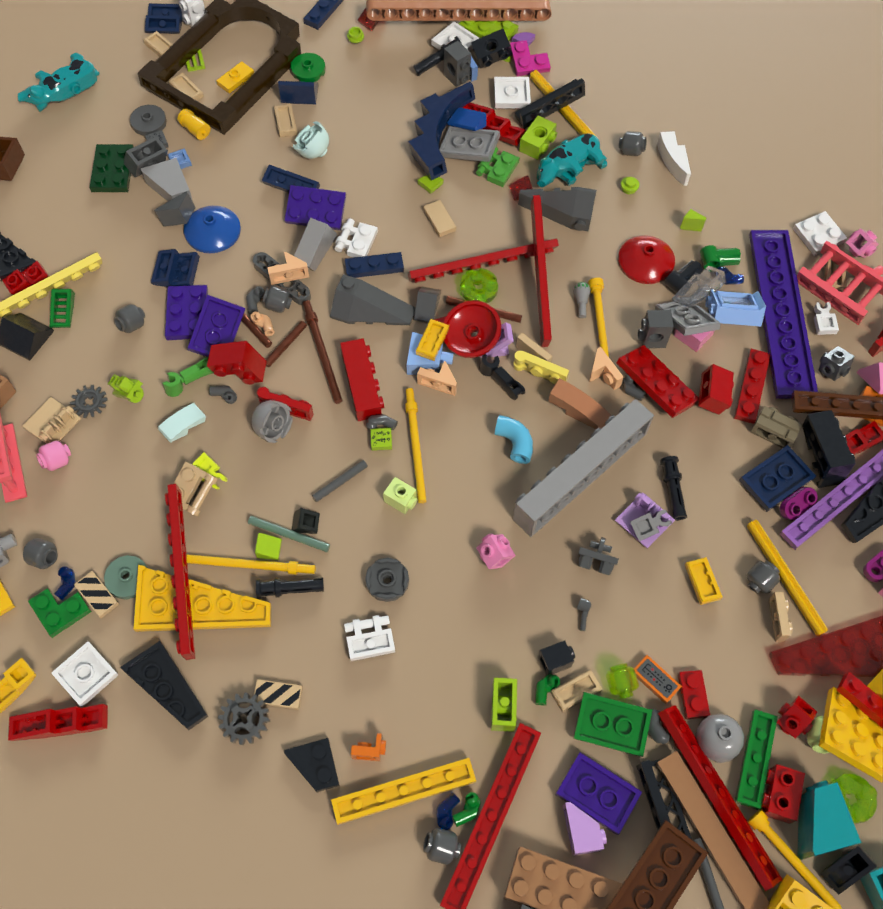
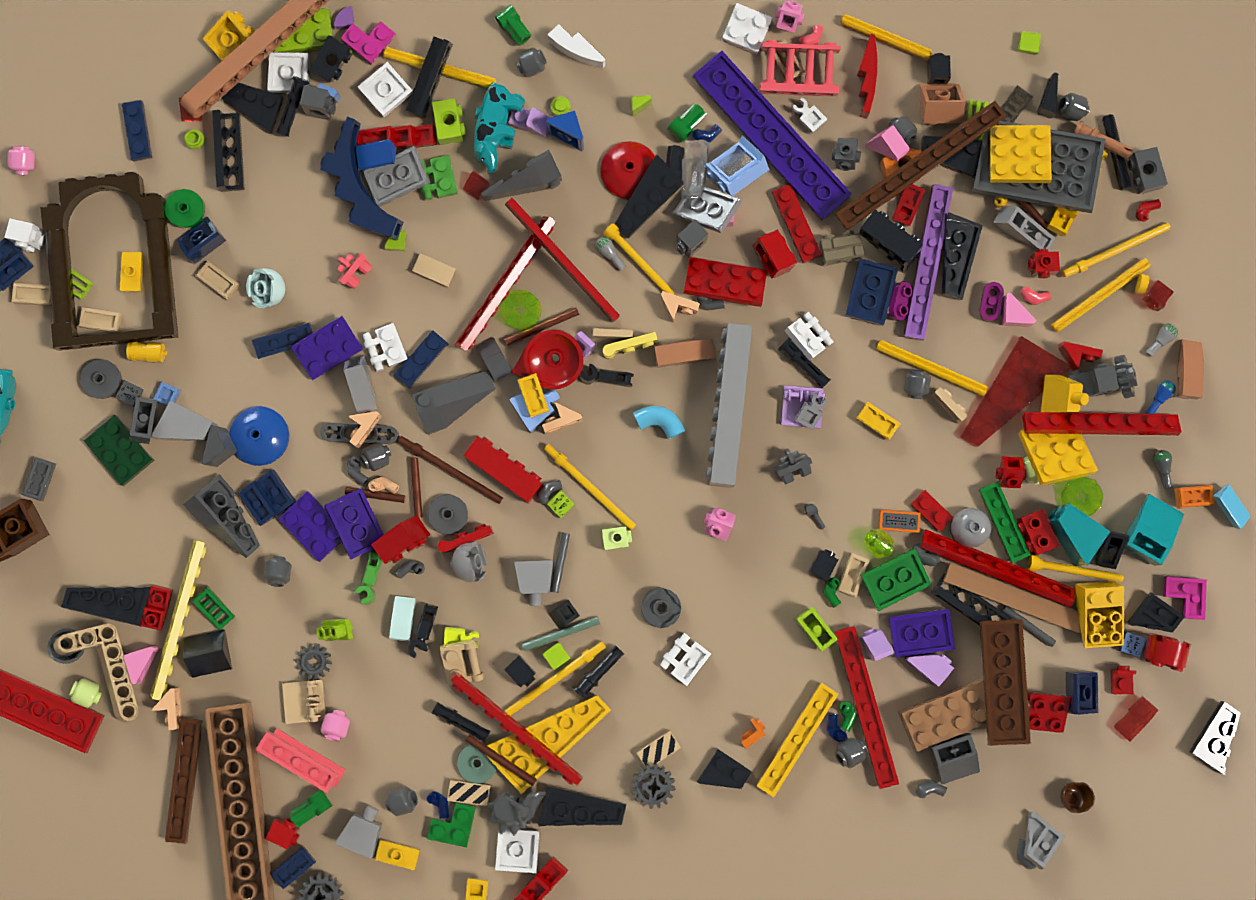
camera: 40 degrees left, 20 degrees up
(43, 145) = (39, 479): none -> dark grey plate
(114, 638) = (514, 812): none -> dark grey head
(133, 251) = (218, 511): none -> dark grey wedge
(143, 525) = (461, 722): none -> black pin
(145, 587) = (501, 760): none -> copper bar
(187, 444) = (423, 630): none -> black piece
(229, 533) = (521, 672): none -> black brick
(291, 387) = (458, 517): none -> dark grey plate
(308, 473) = (534, 579): none -> light grey torso
(365, 52) = (220, 151): none -> black fence
(381, 172) = (348, 277): none -> coral hips
(414, 43) = (256, 104): none -> black wing
(547, 765) = (876, 644): none -> lavender slope
(599, 178) = (530, 121): none -> lavender slope
(621, 194) = (566, 129): none -> blue slope
(639, 111) = (510, 21): none -> green piece
(647, 280) = (651, 193): none -> black wing
(690, 469) = (804, 337): none -> white plate

